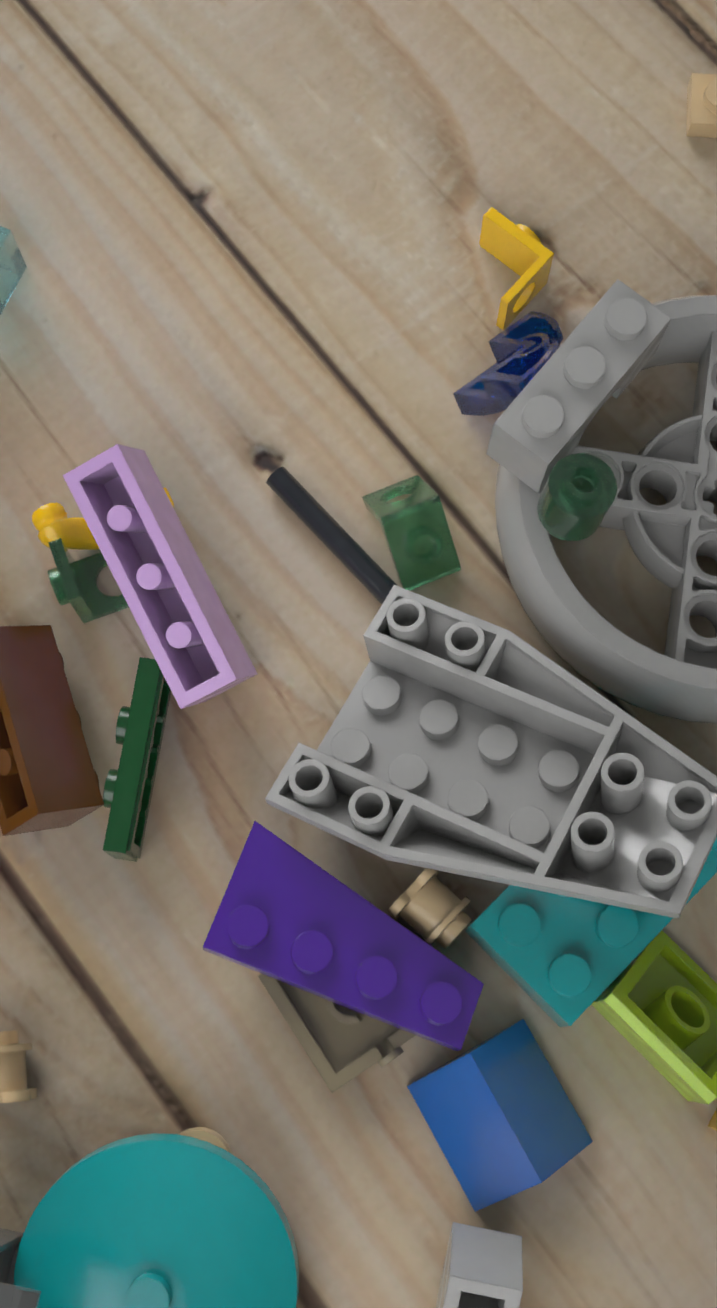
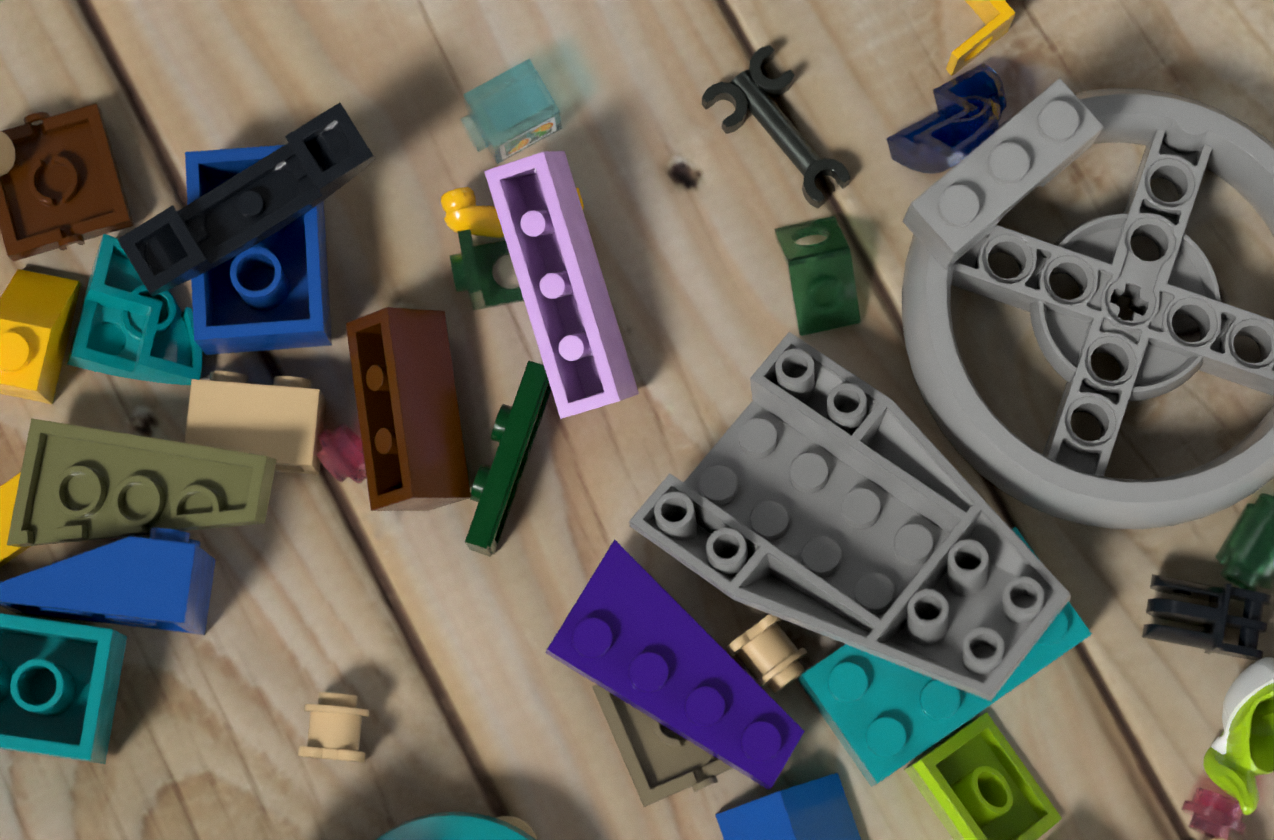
camera: 10 degrees right, 5 degrees up
(87, 423) = (510, 112): none -> clear light blue brick
(323, 374) = (754, 91): none -> pearl dark grey bar
(331, 533) = (737, 264): black bar -> none
(576, 496) = (967, 301): clear green brick -> none

